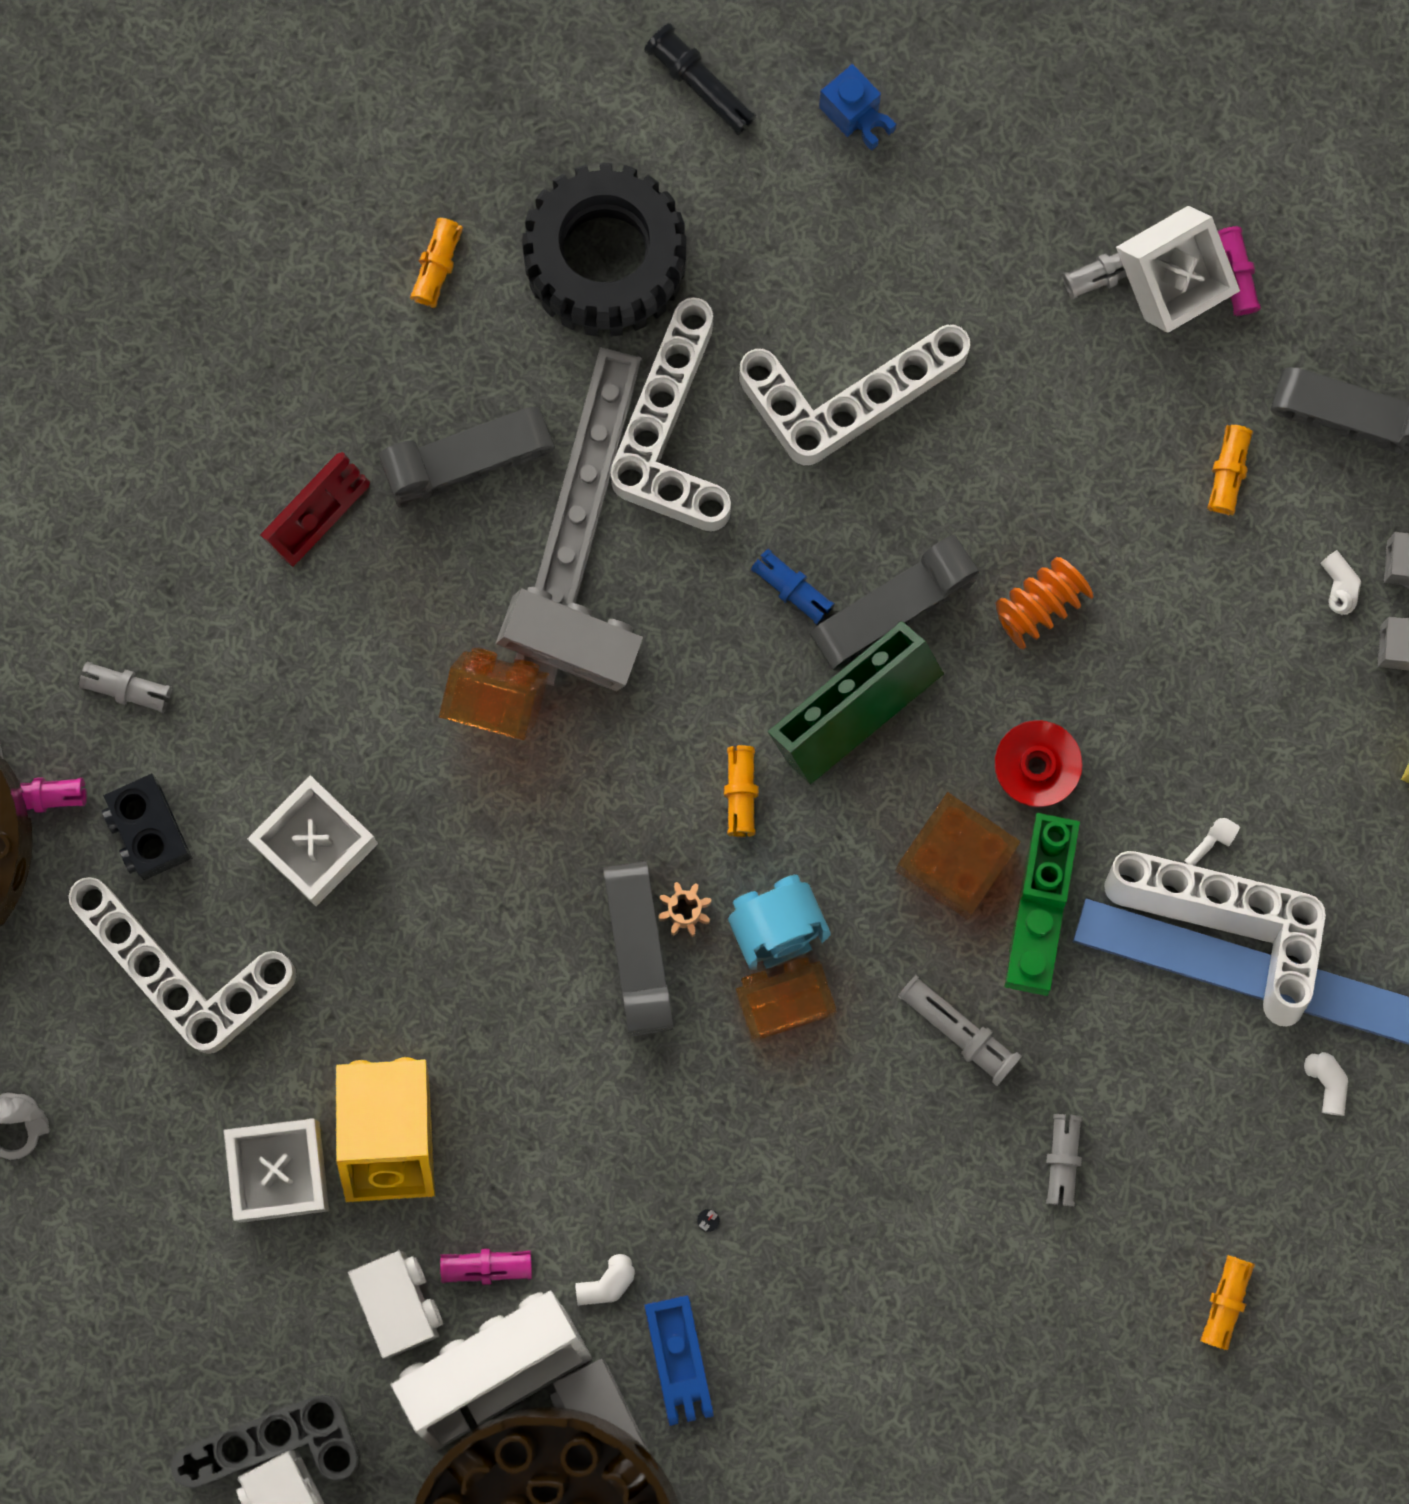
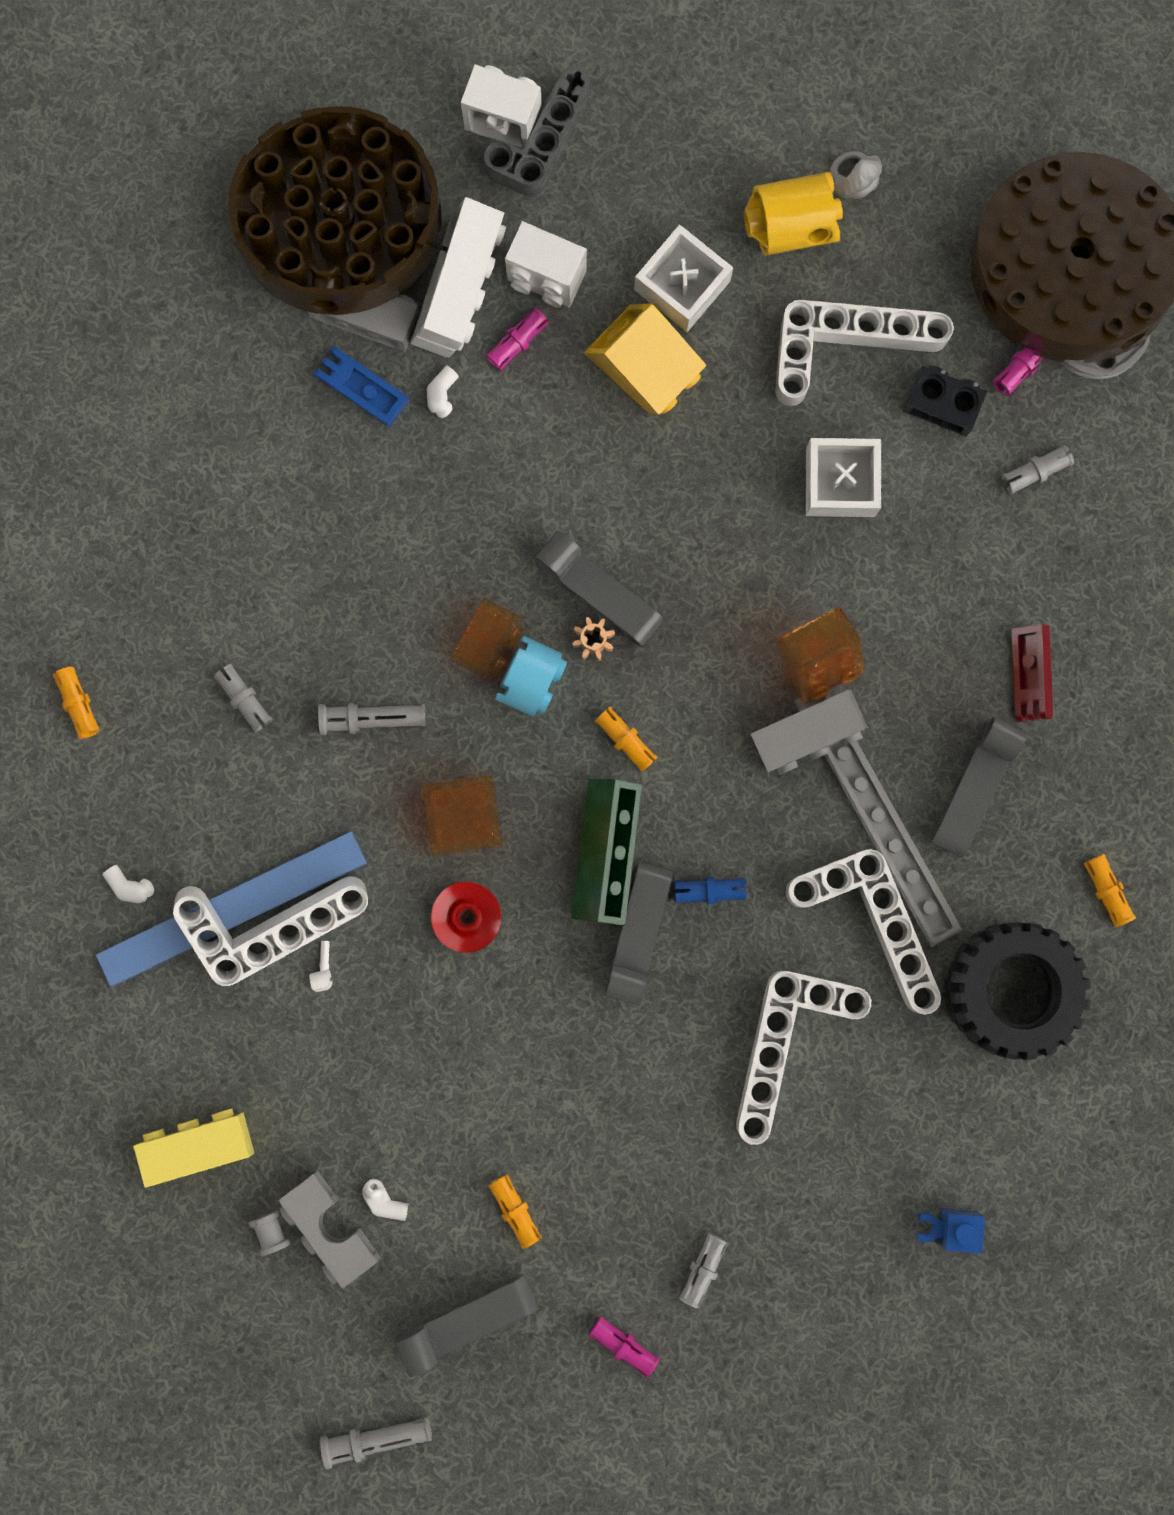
camera: 140 degrees right, 5 degrees up
(114, 1133) = (794, 214): none -> yellow cylinder
(687, 66) = (1082, 1158): black pin -> none
(708, 1220) = (416, 479): black piece -> none
(1041, 599) = (553, 1018): orange piece -> none
(1041, 904) = (388, 833): green slope -> none
(1178, 268) = (659, 1309): white brick -> none

